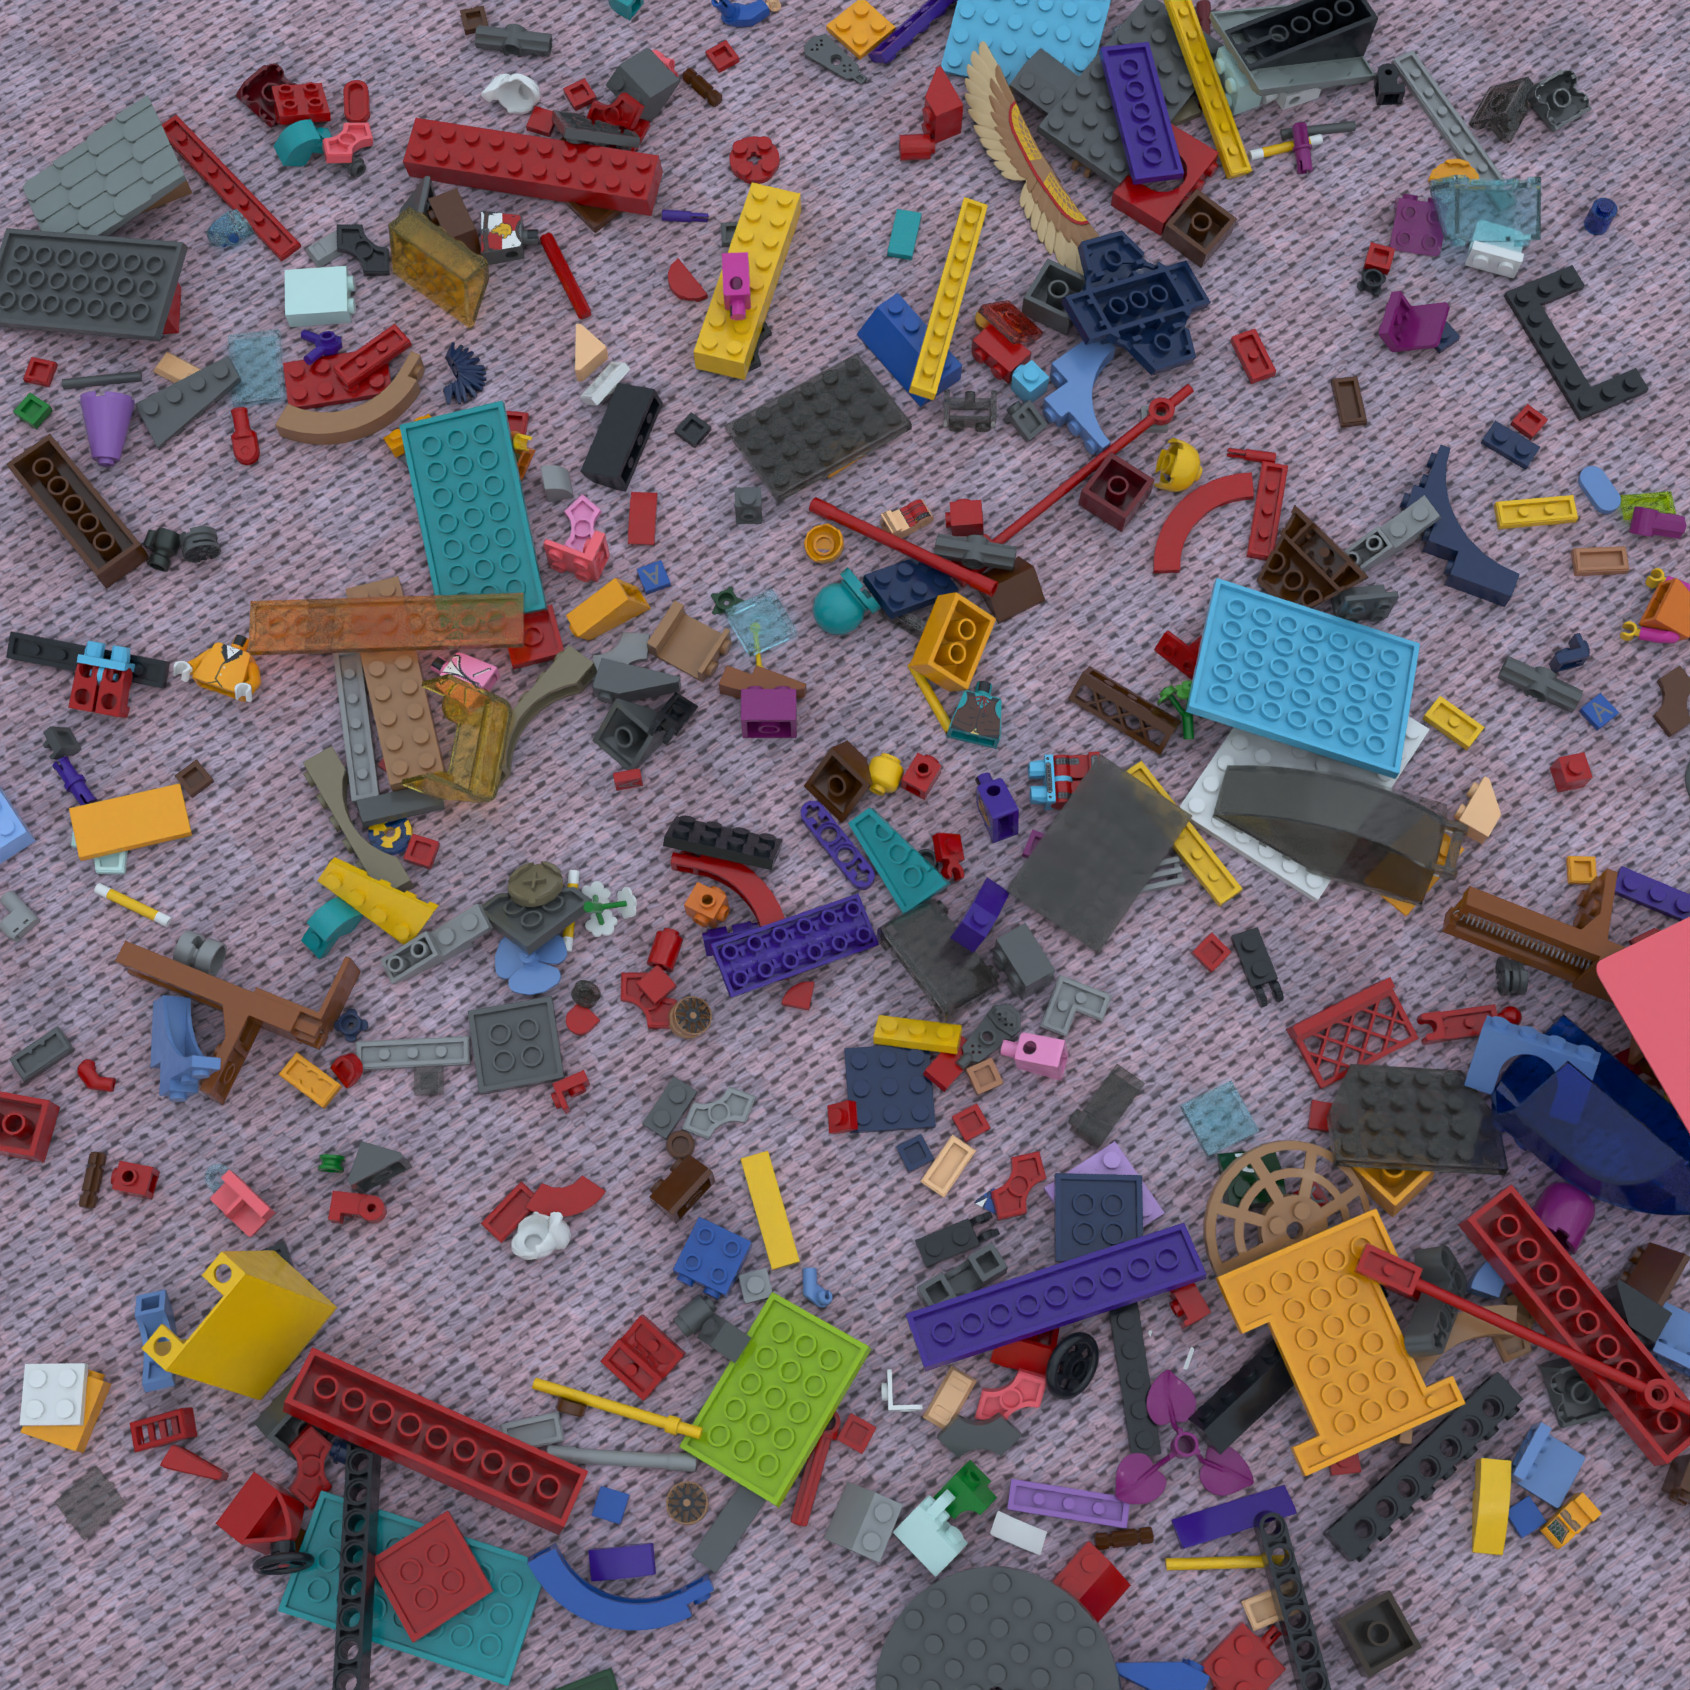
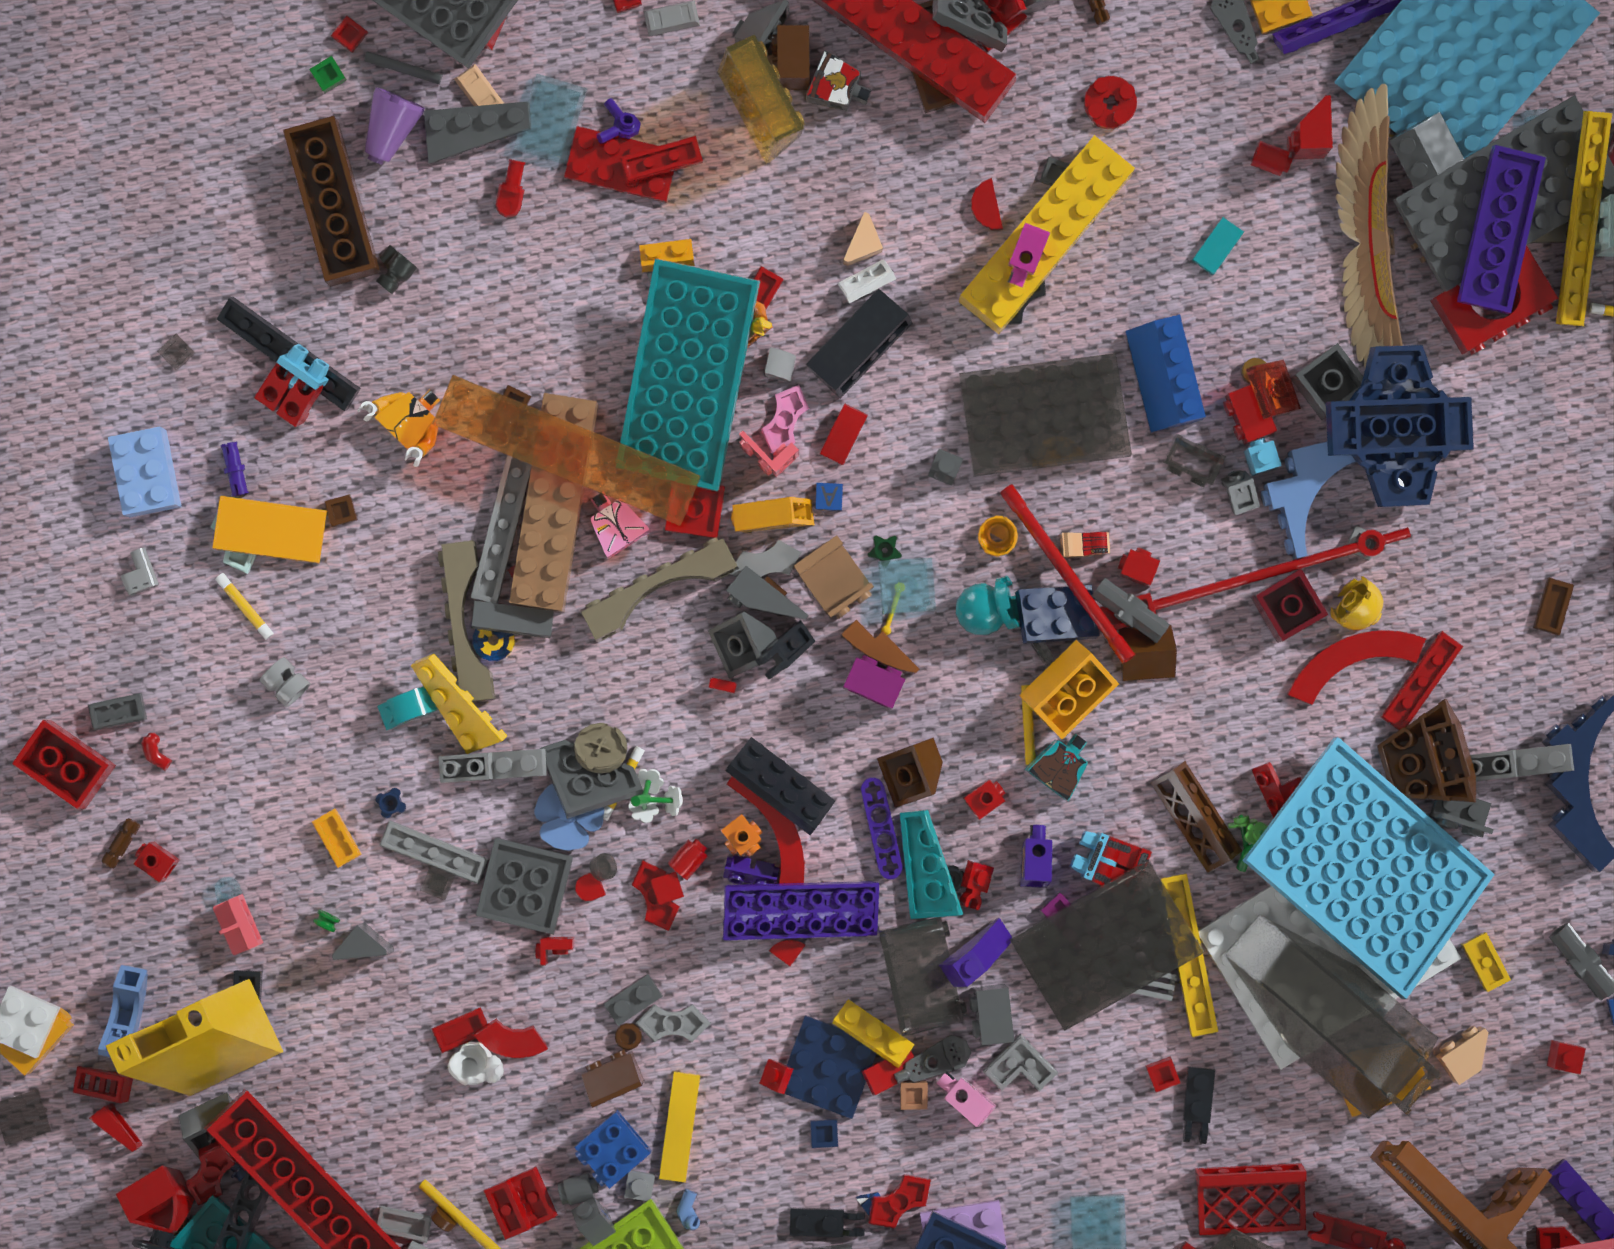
camera: 20 degrees right, 15 degrees up
(61, 741) = (236, 424): dark grey tile -> none
(176, 1049) = (232, 768): medium blue arch -> none
(199, 543) = (430, 284): dark grey wheel -> none
(242, 1009) = (302, 752): dark orange piece -> none
(319, 296) = (637, 71): light aqua brick -> none
(348, 1069) = (372, 842): red tile -> none
(353, 241) = (692, 26): black tile -> none
(357, 422) = (625, 220): medium nougat arch -> none
(357, 1206) = (340, 971): red leg -> none
(421, 851) = (513, 671): red plate -> none
(468, 375) = (742, 213): dark blue hair -> none
(478, 743) = (597, 605): clear yellow windscreen -> none
(565, 276) = (877, 145): red axle -> none
(683, 216) = (1016, 133): dark purple pin -> none
(689, 1017) = (683, 929): medium nougat wheel -> none
(693, 430) = (928, 363): black tile -> none
(885, 774) = (952, 783): yellow head -> none
(948, 299) = (1225, 343): yellow plate -> none
(948, 1166) = (847, 1157): light nougat tile -> none
(971, 1122) = (884, 1128): red tile -> none
(1105, 1107) = (1006, 1169): clear smoke door -> none
(1199, 228) = (1500, 370): reddish brown brick -> none
(1252, 455) = (1436, 620): red pin -> none
(1253, 356) = (1486, 521): red plate -> none
(1511, 976) = (1412, 1218): dark grey wheel -> none
(1581, 869) = (1528, 1146): light orange tile -> none

